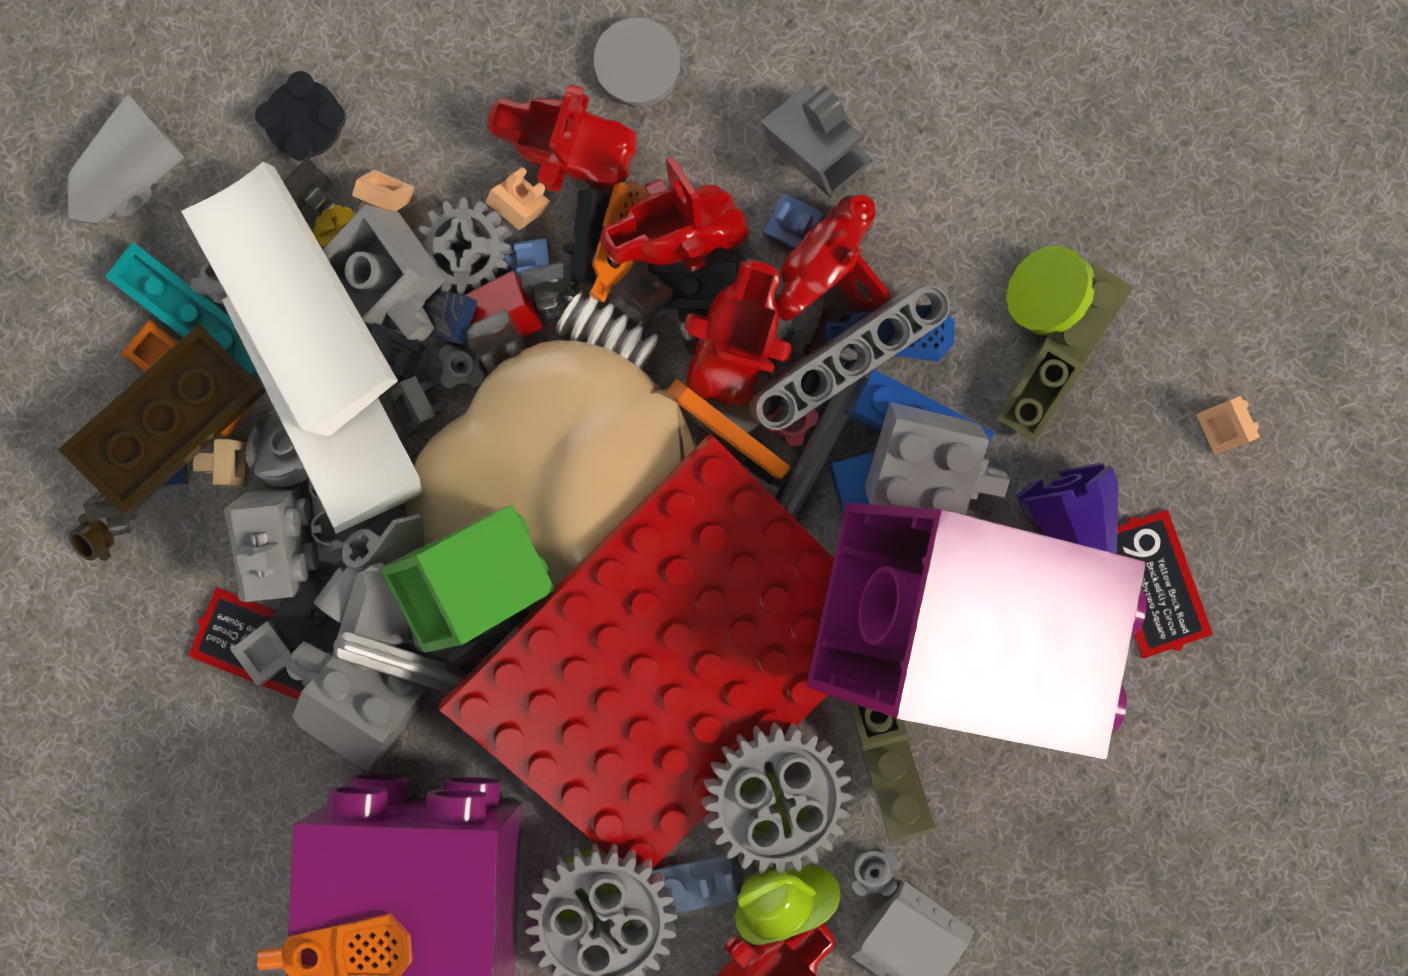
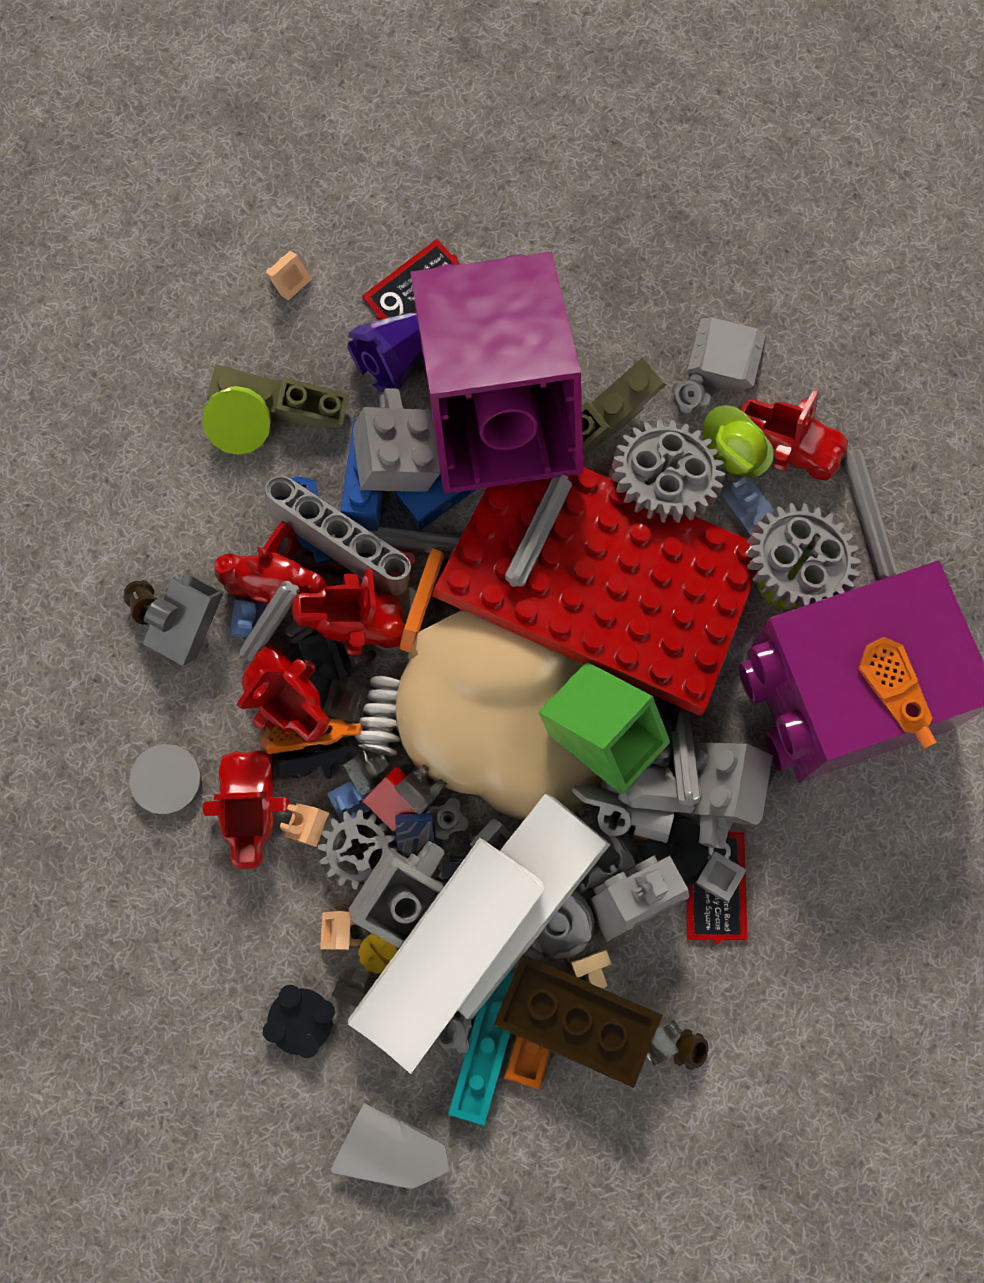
camera: 110 degrees left, 10 degrees down
(745, 597) = (538, 531): none -> light grey axle
(771, 238) = (269, 620): none -> light grey axle
(860, 102) = (145, 598): none -> dark brown bush

